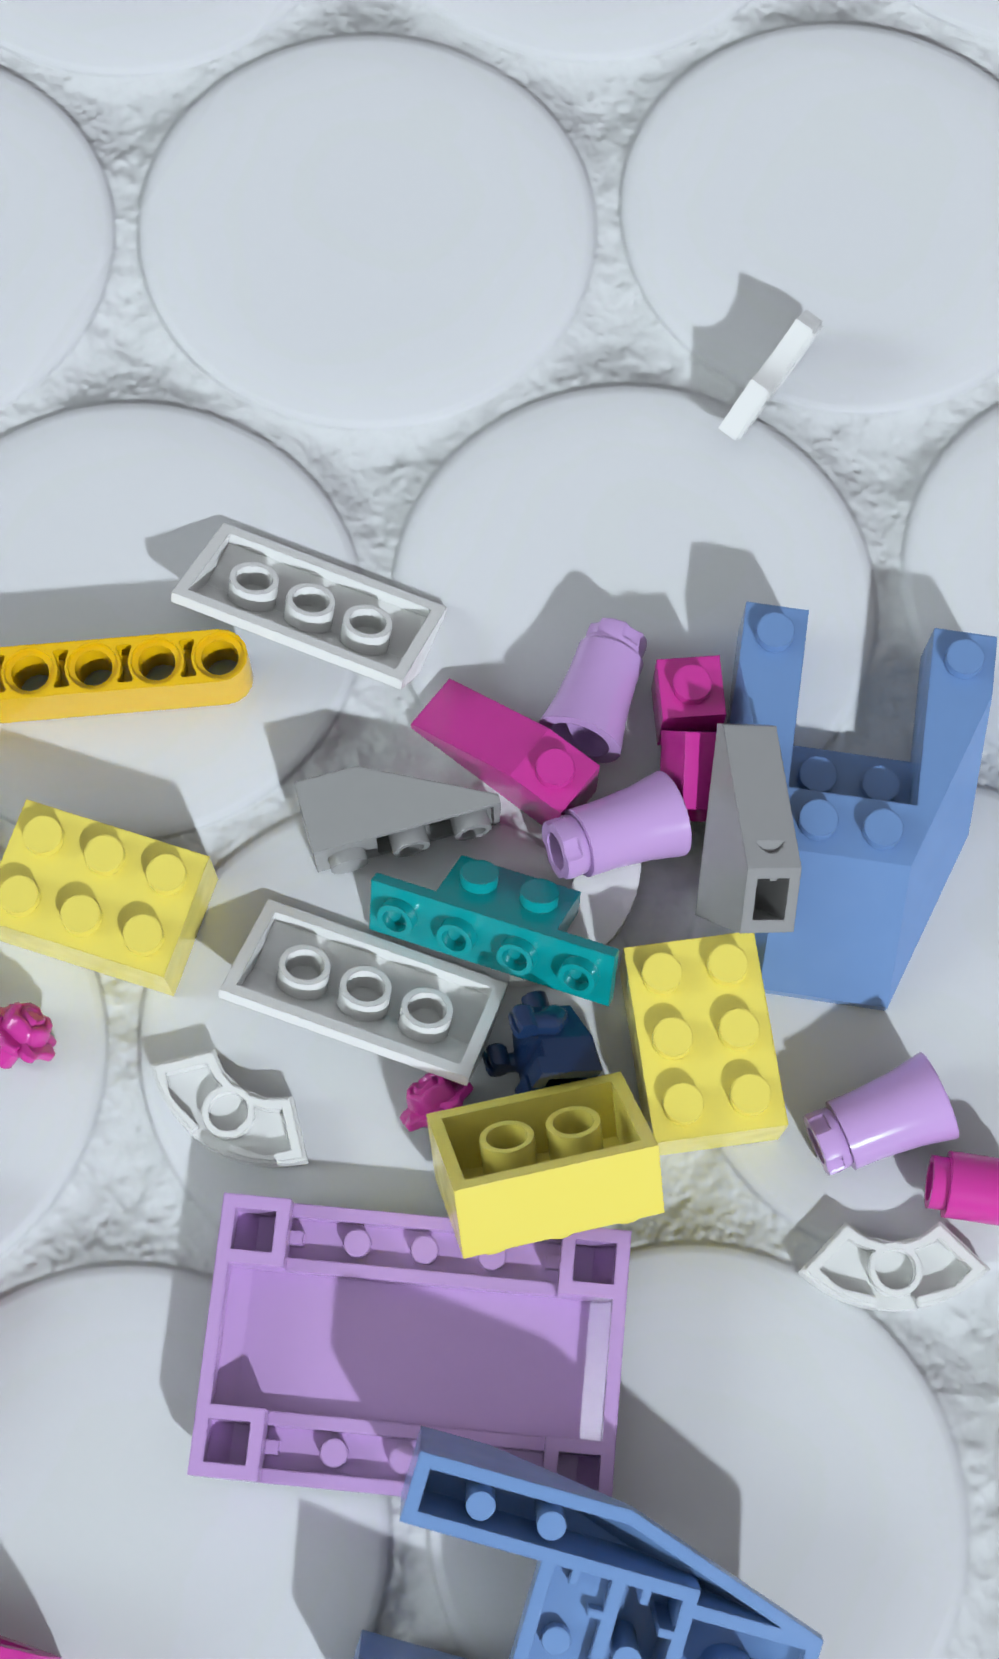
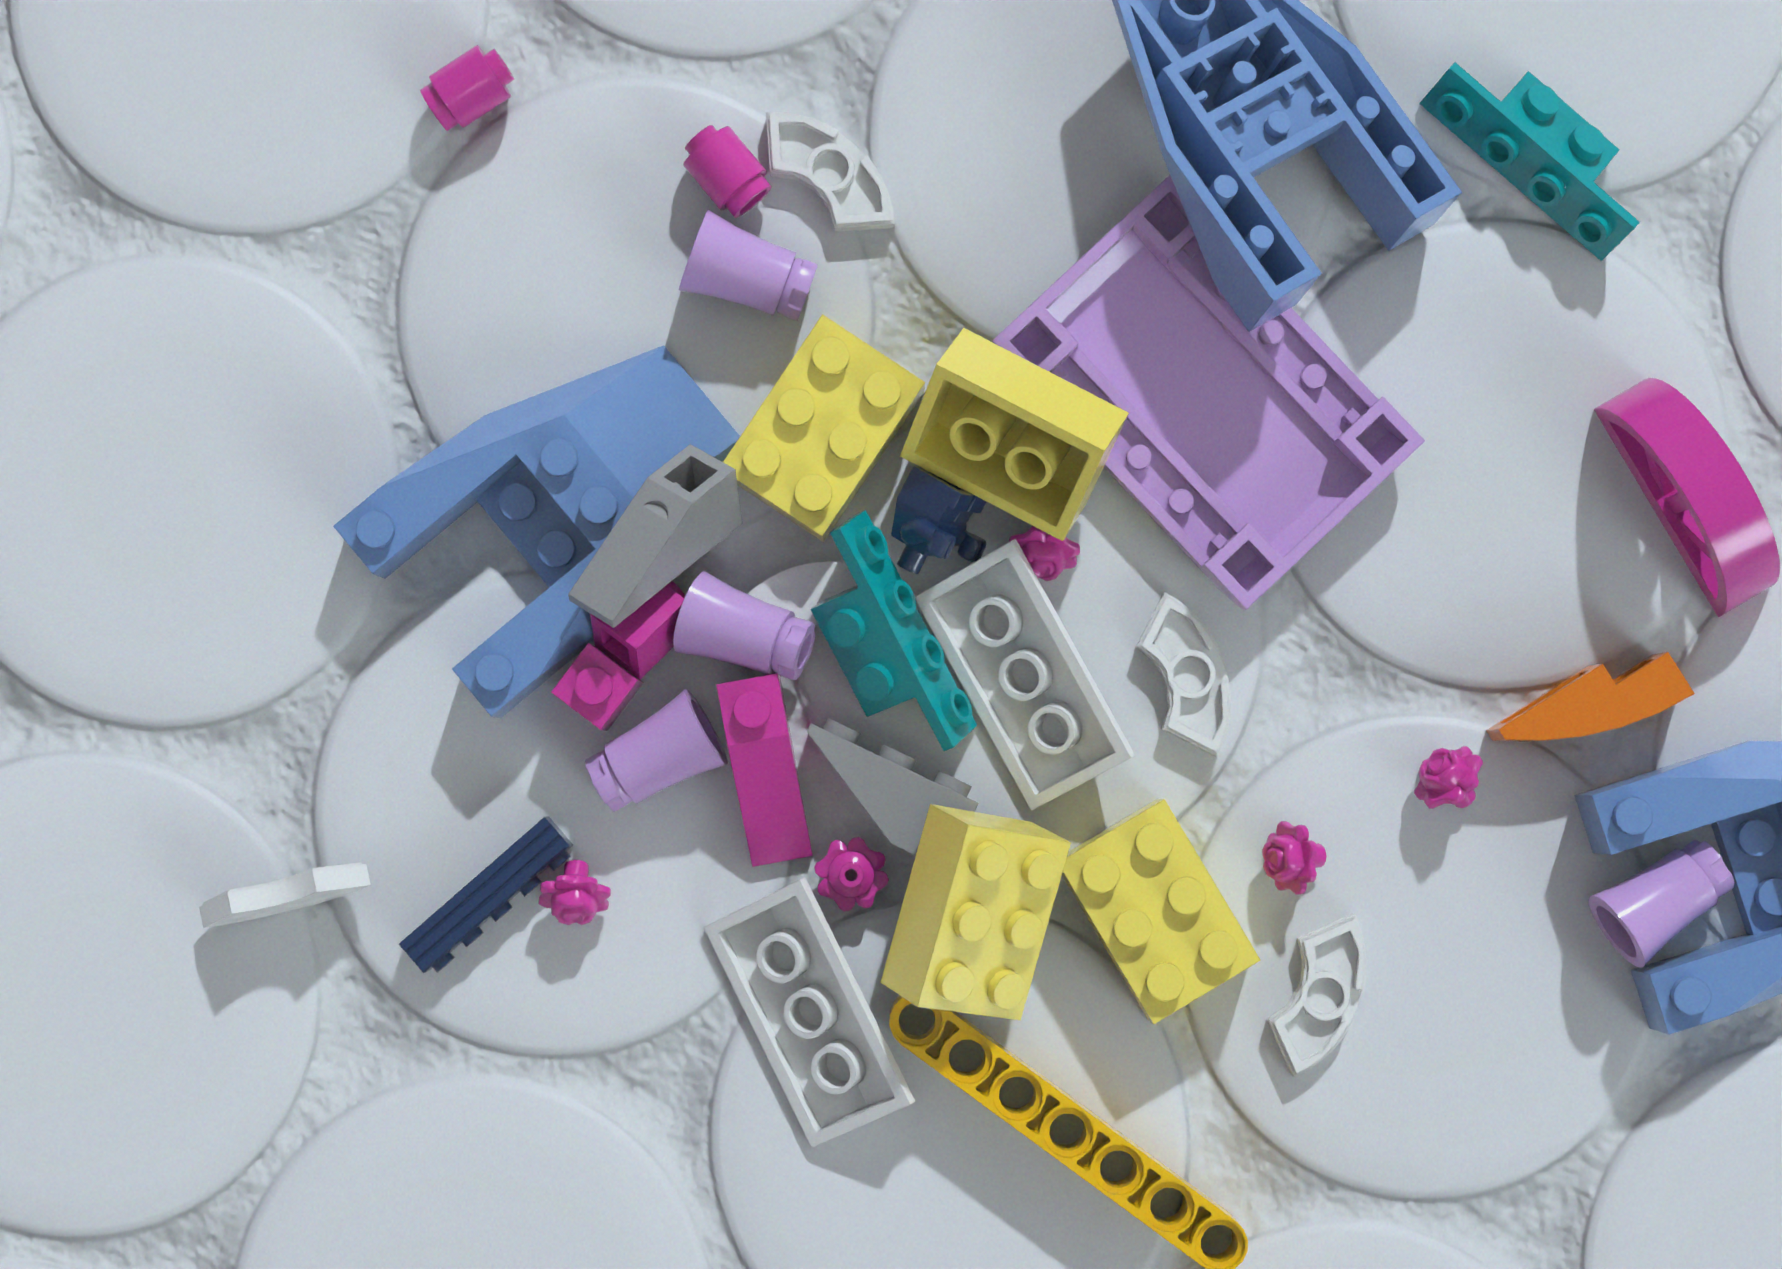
camera: 140 degrees left, 15 degrees up
(242, 765) = (975, 913): none -> light yellow brick
(368, 731) = (851, 874): none -> dark pink plant
(563, 545) = (574, 895): none -> dark pink plant
(626, 497) = (487, 896): none -> dark blue piece

